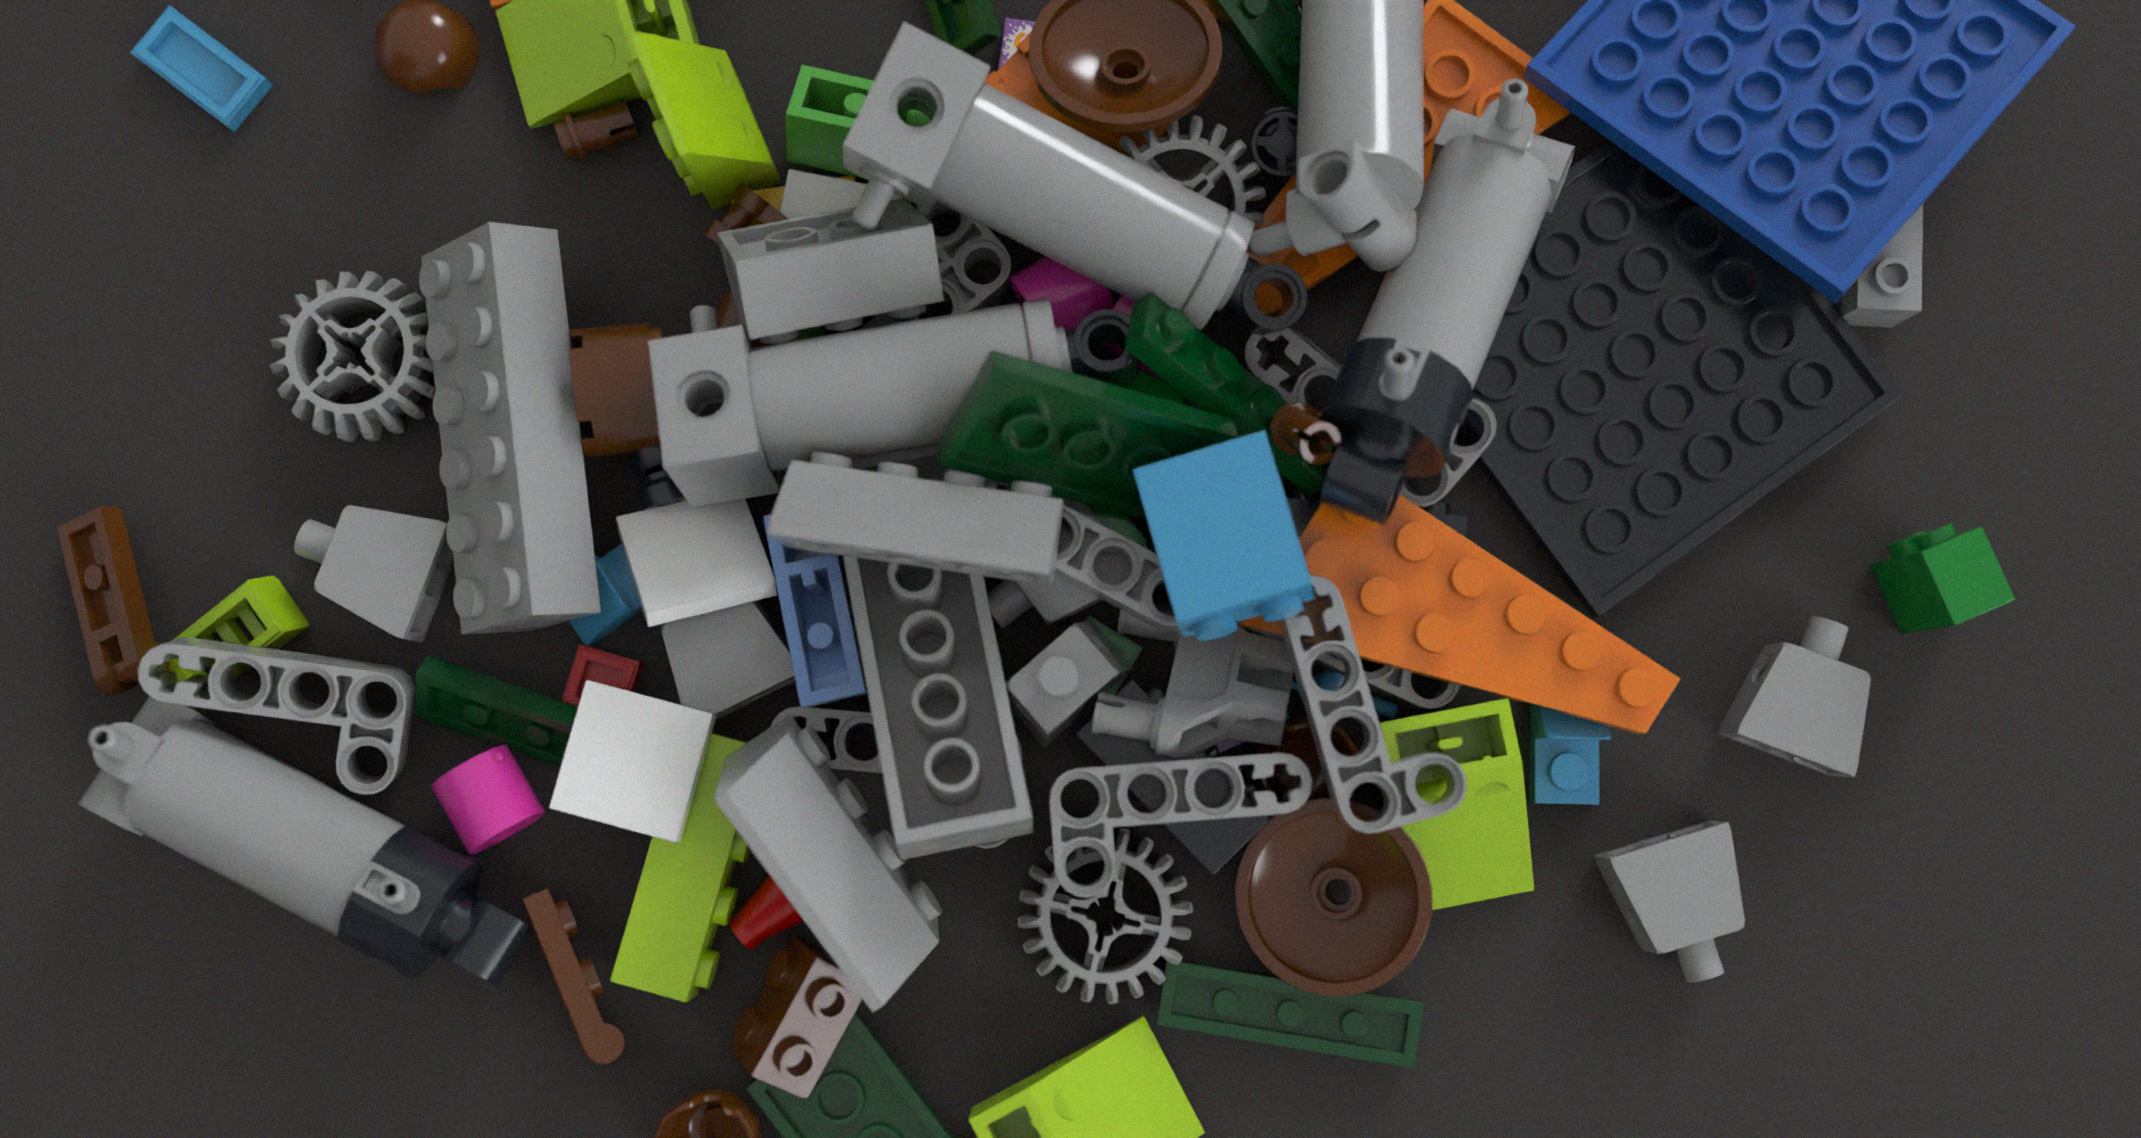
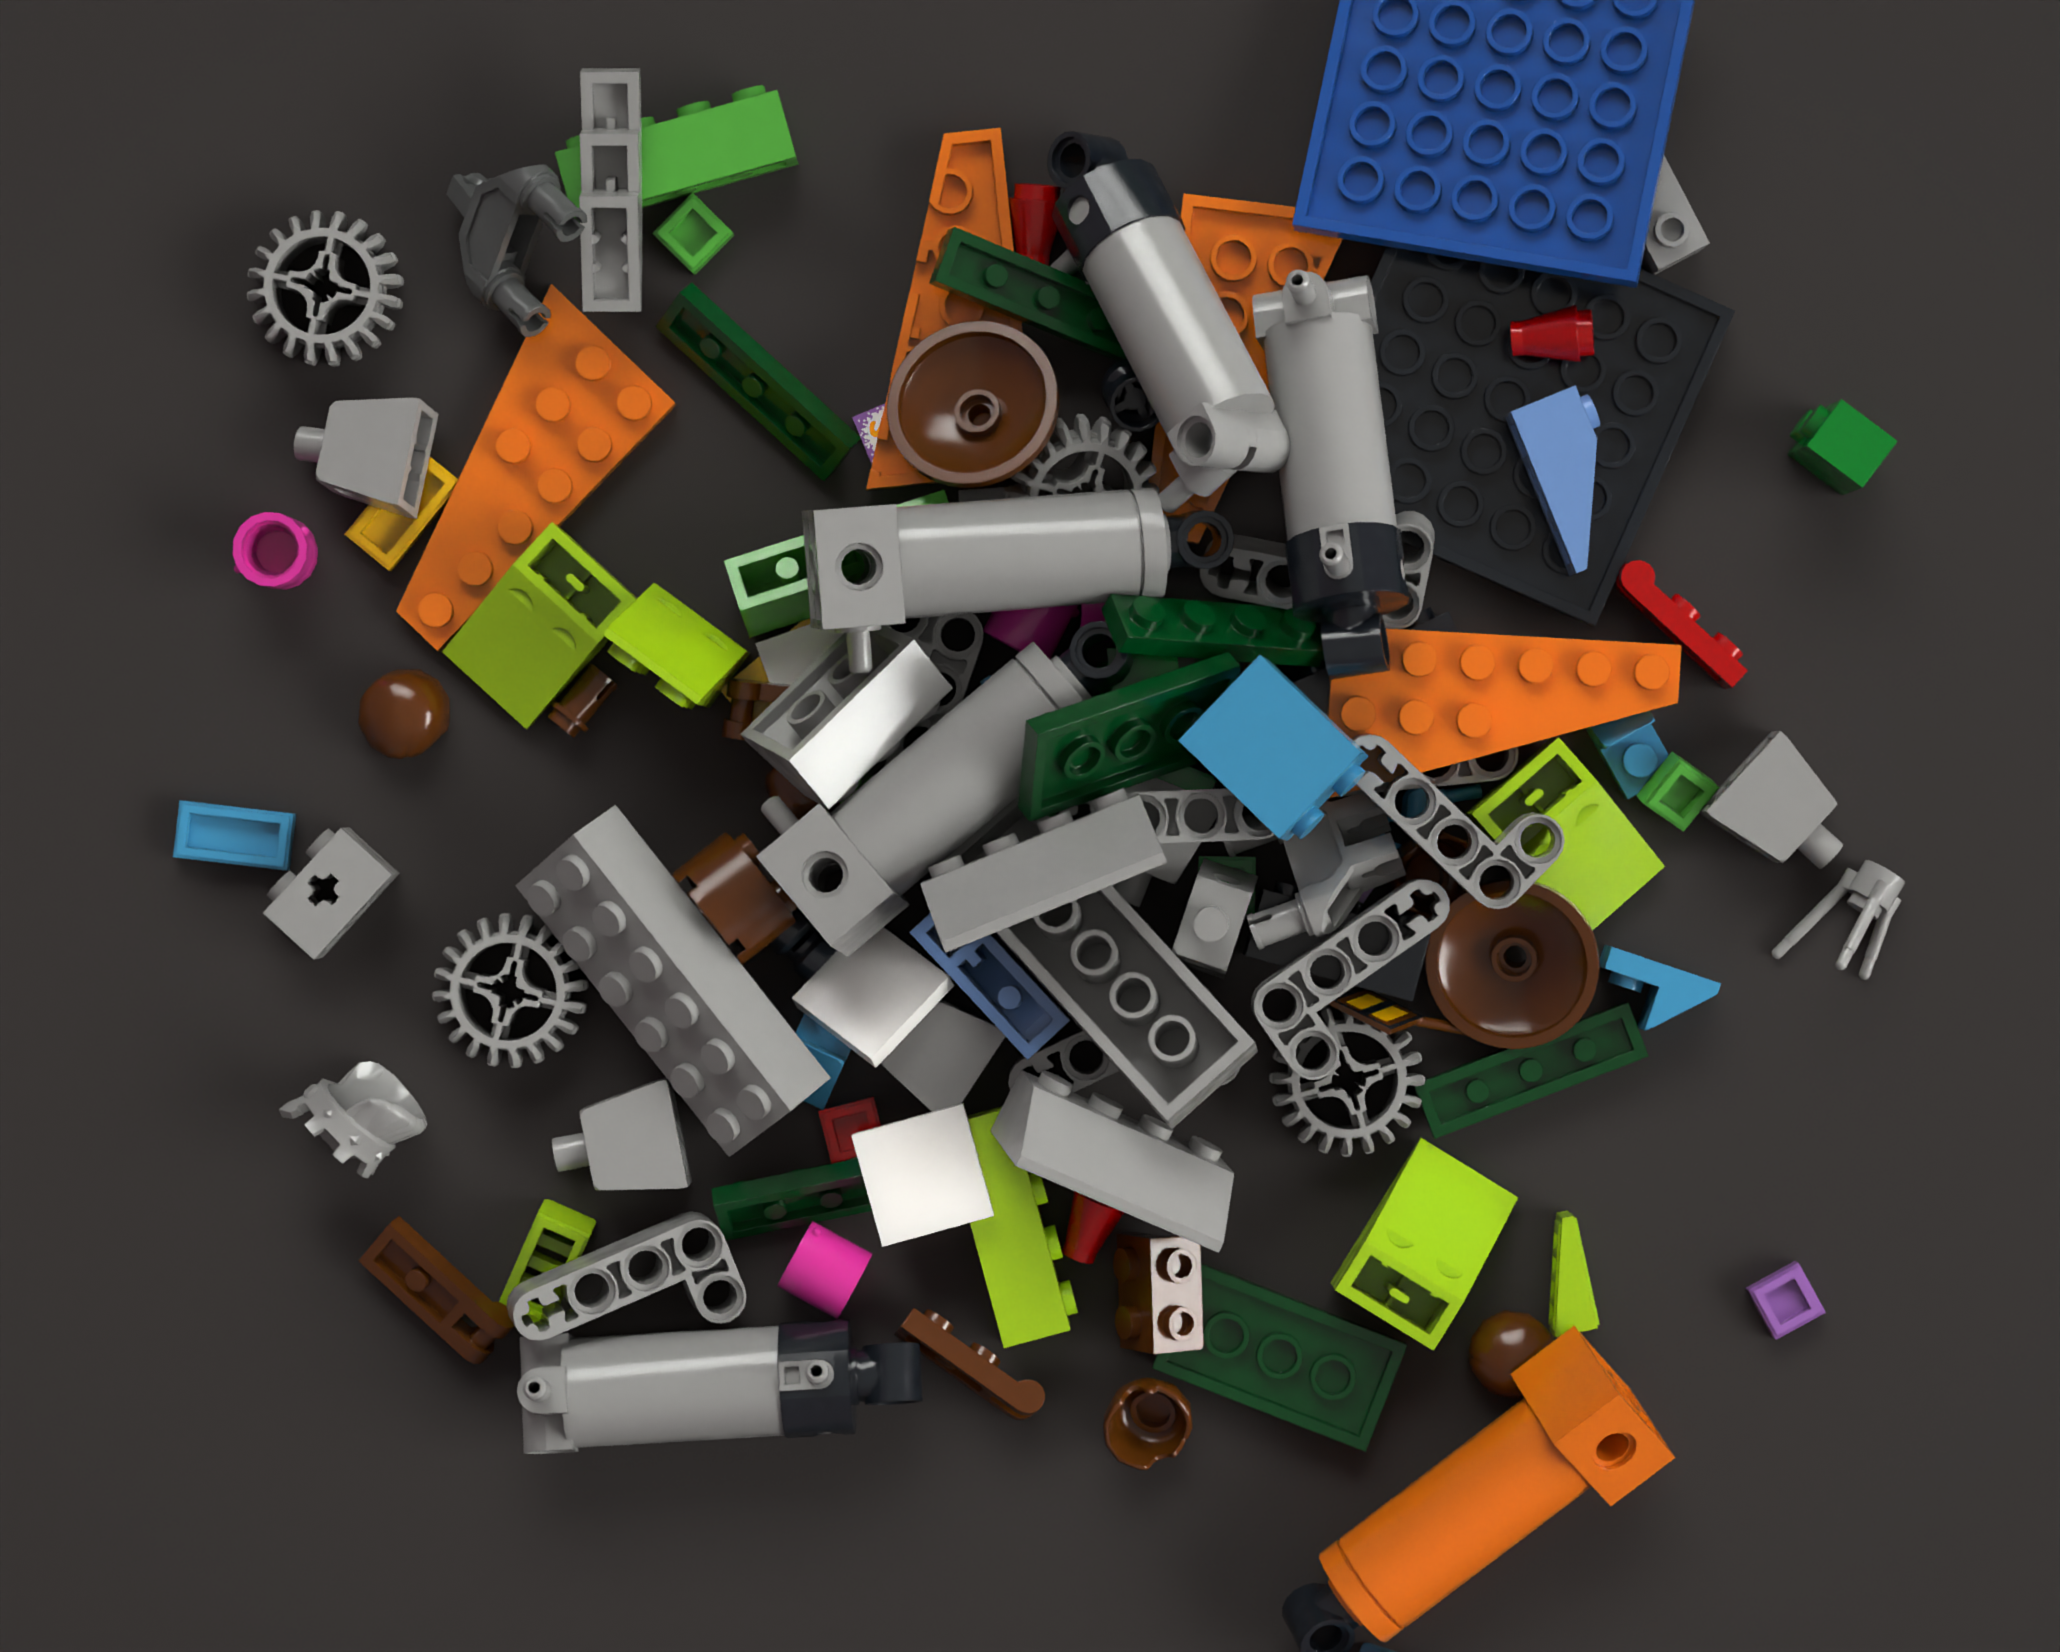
camera: 30 degrees left, 5 degrees up
(137, 388) = (360, 1114): none -> light grey hair
(250, 166) = (317, 923): none -> light grey brick
(1180, 872) = (1385, 1013): none -> piece
(1312, 435) = (1283, 632): reddish brown pin -> none
(1473, 1012) = (1670, 990): none -> dark azure slope
(1588, 823) = (1677, 791): none -> bright green tile
(1660, 426) = (1560, 458): none -> medium blue slope
(1695, 709) = (1677, 621): none -> red plate
(1720, 314) = (1555, 335): none -> red cone
(1724, 1039) = (1873, 895): none -> light grey plant
(1804, 702) = (1790, 599): light grey torso -> none

